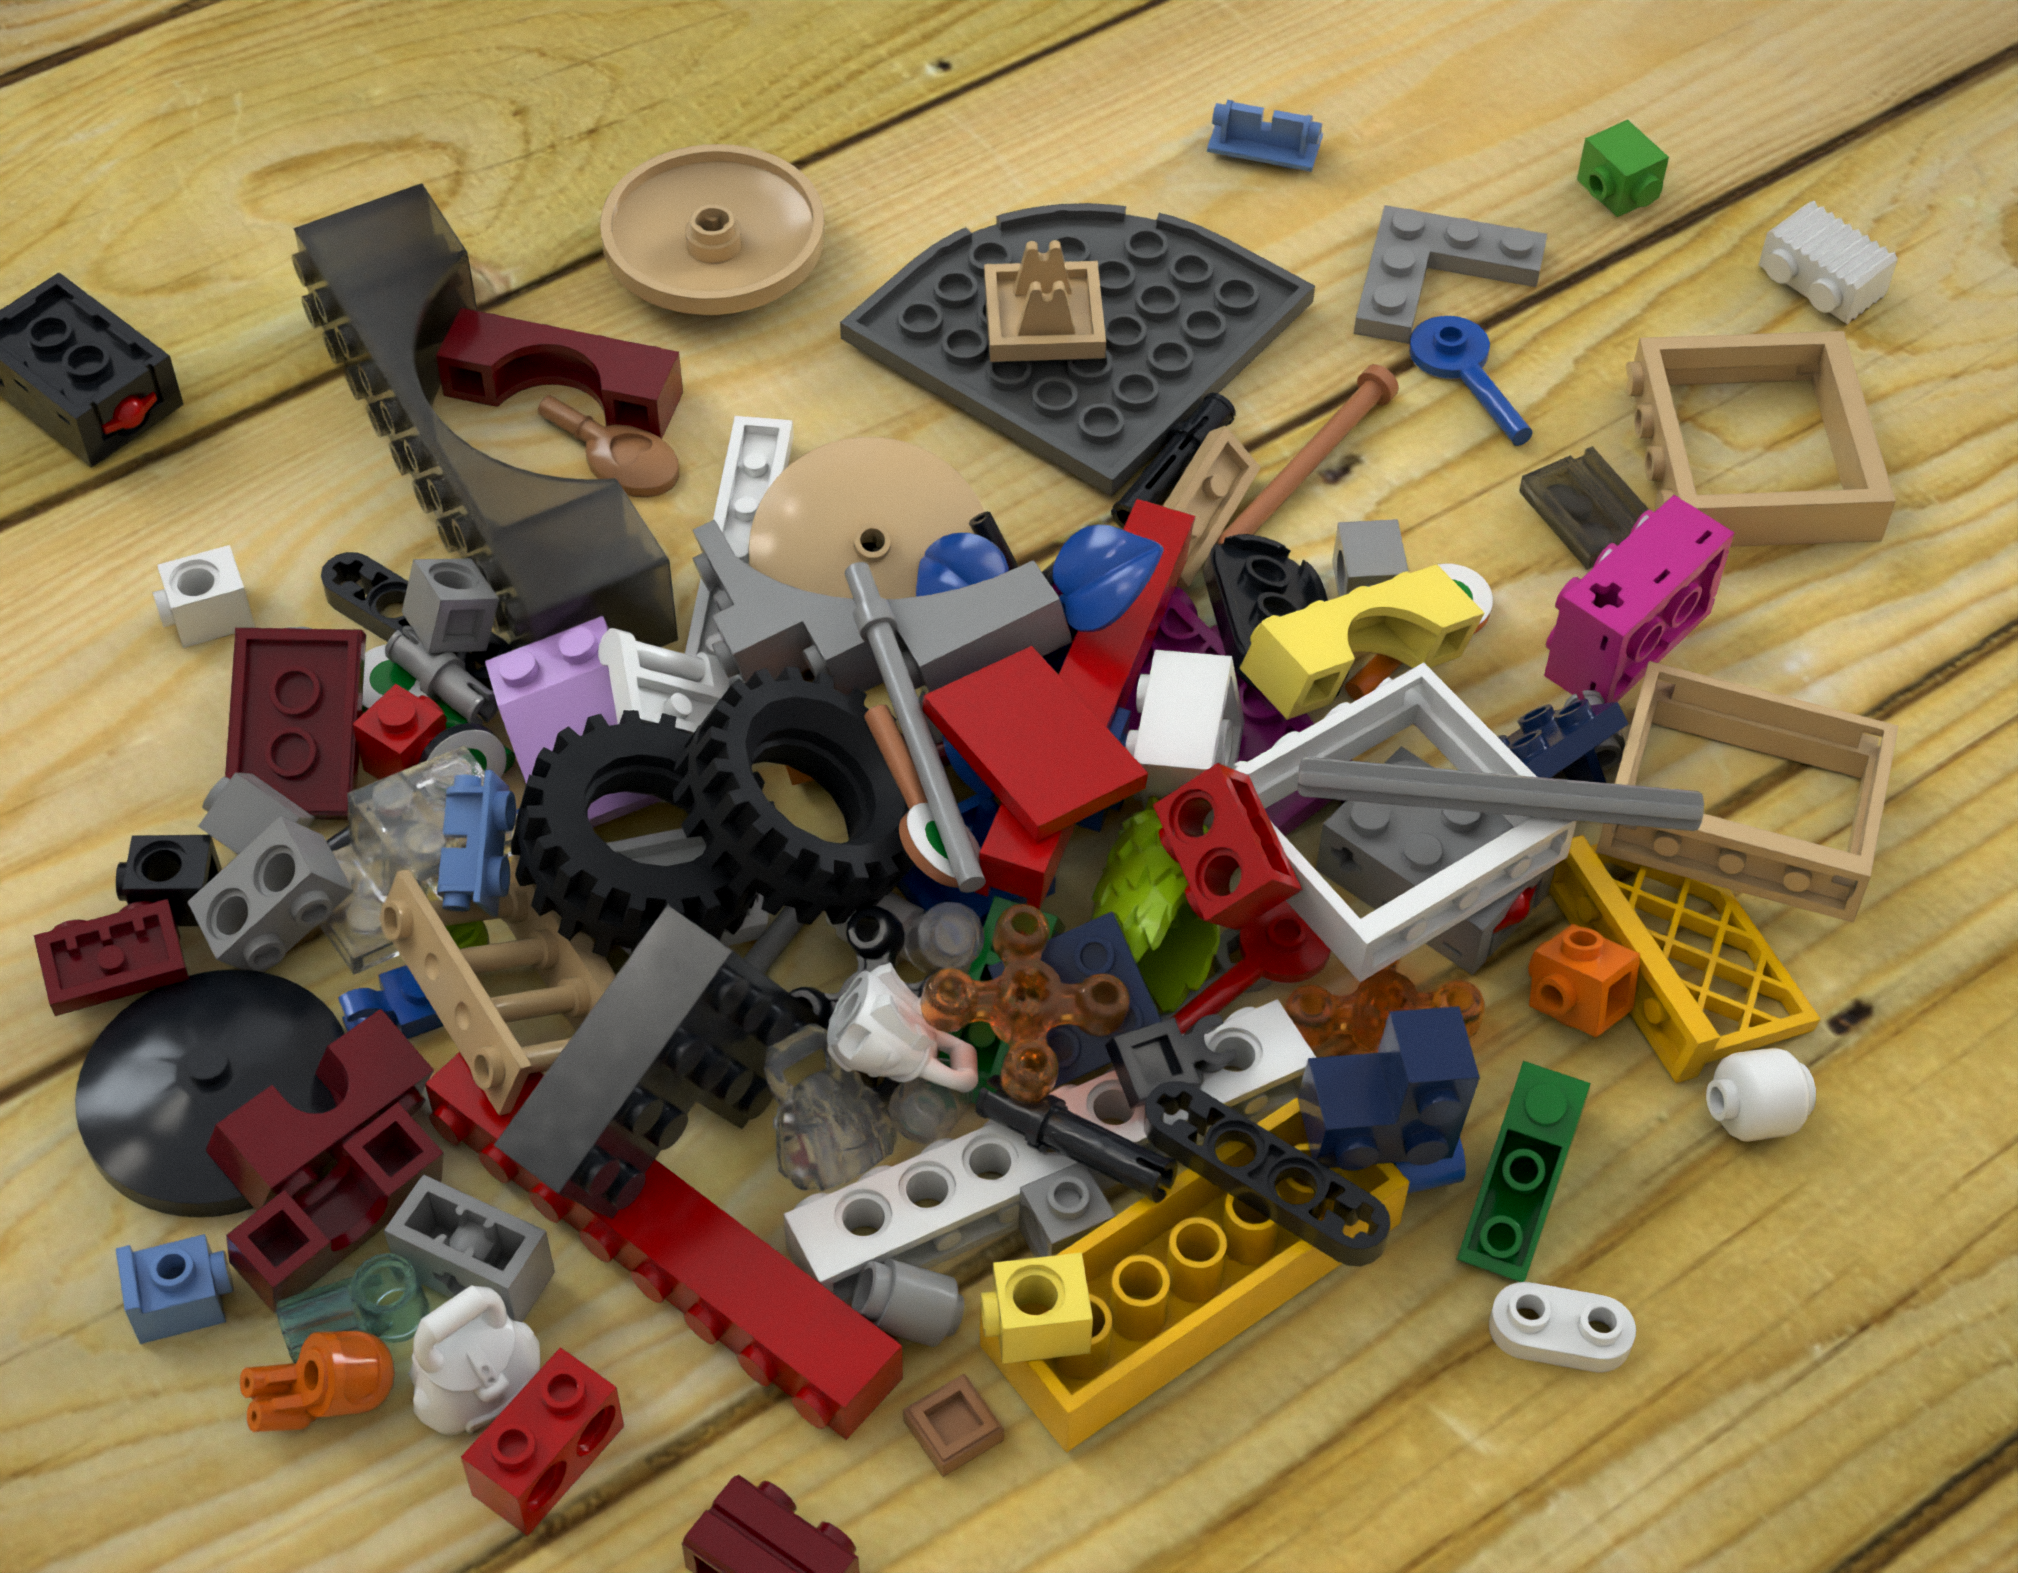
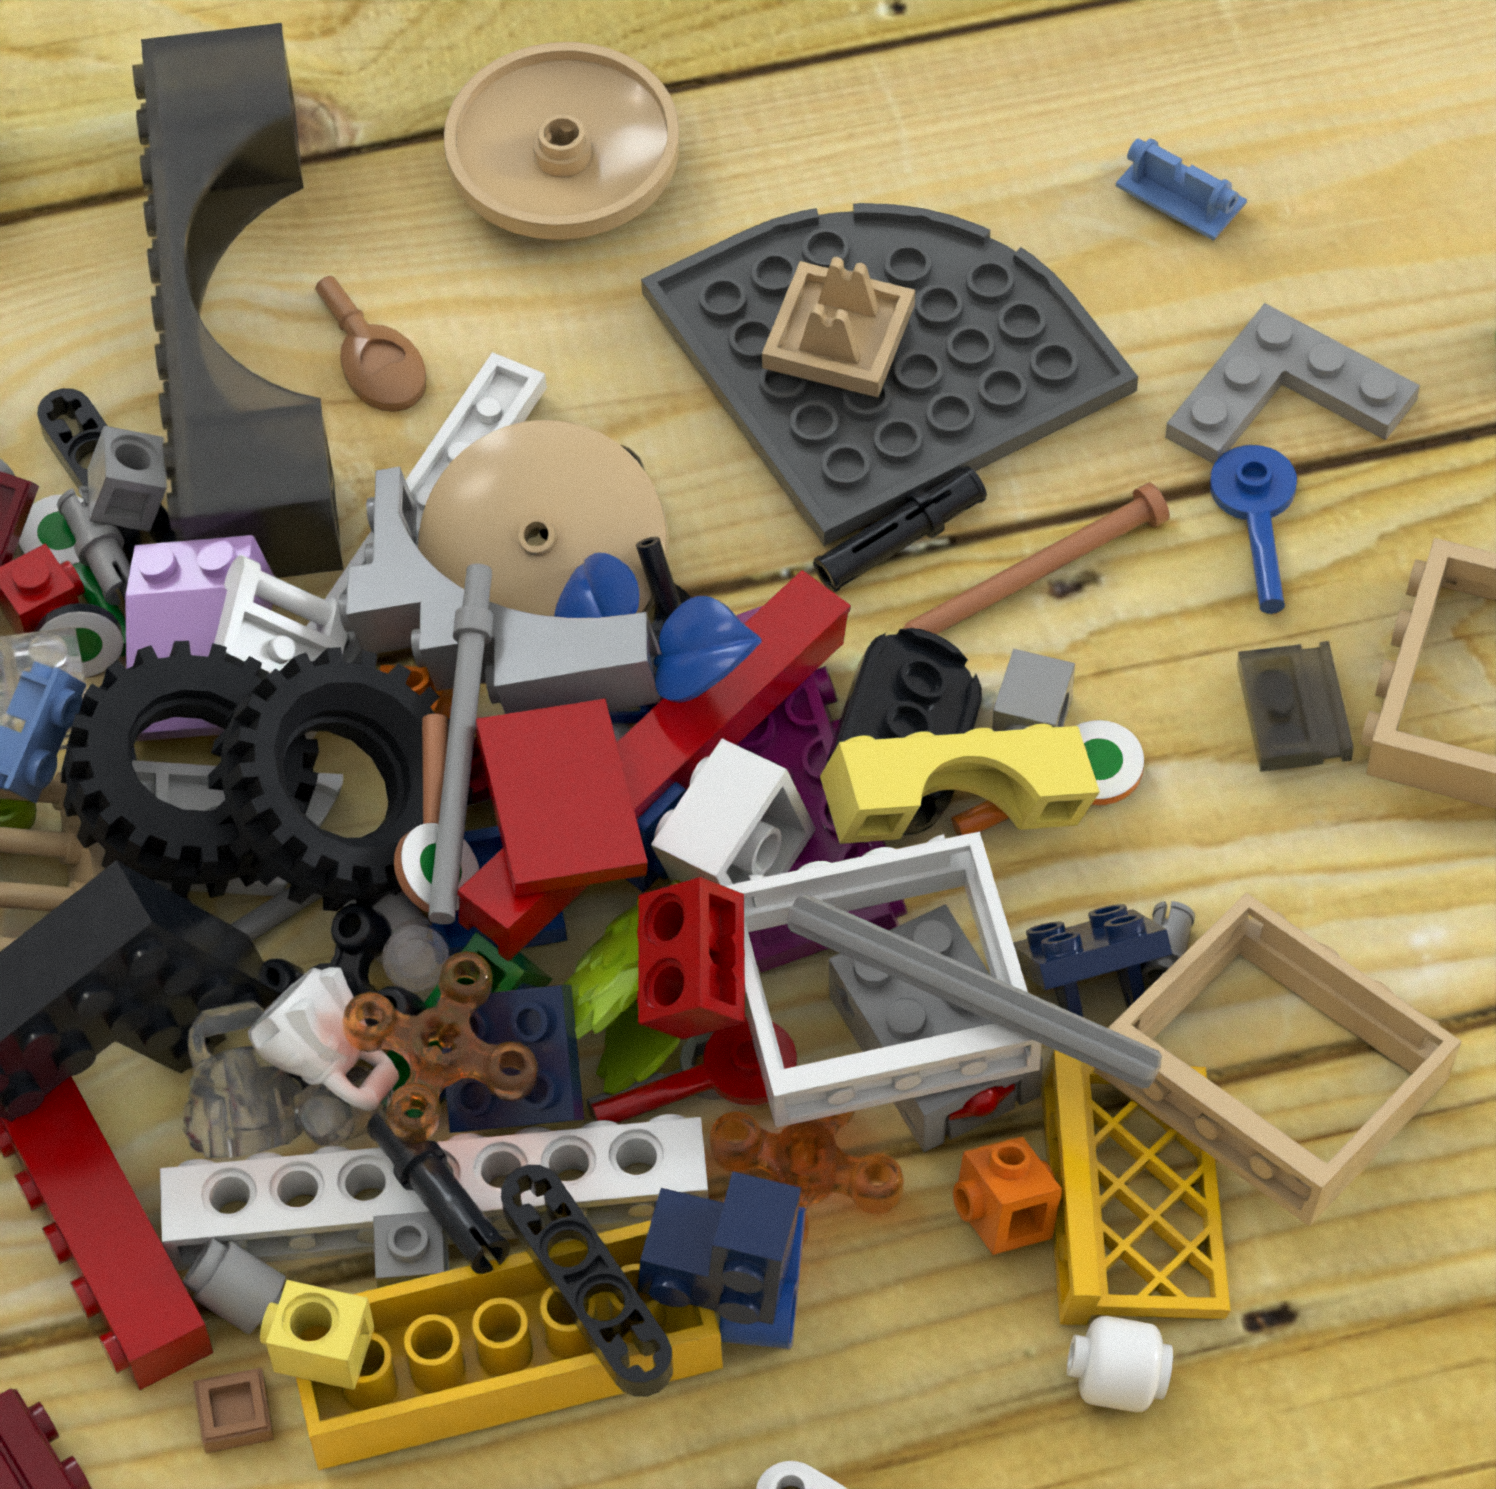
camera: 25 degrees right, 5 degrees up
(497, 356) = (298, 221): dark red arch -> none
(1163, 1055) = (554, 1140): black plate -> none
(1211, 493) = (906, 581): tan plate -> none
(1524, 1171) = (859, 1357): green slope -> none
(1637, 601) = (1269, 826): dark pink piece -> none

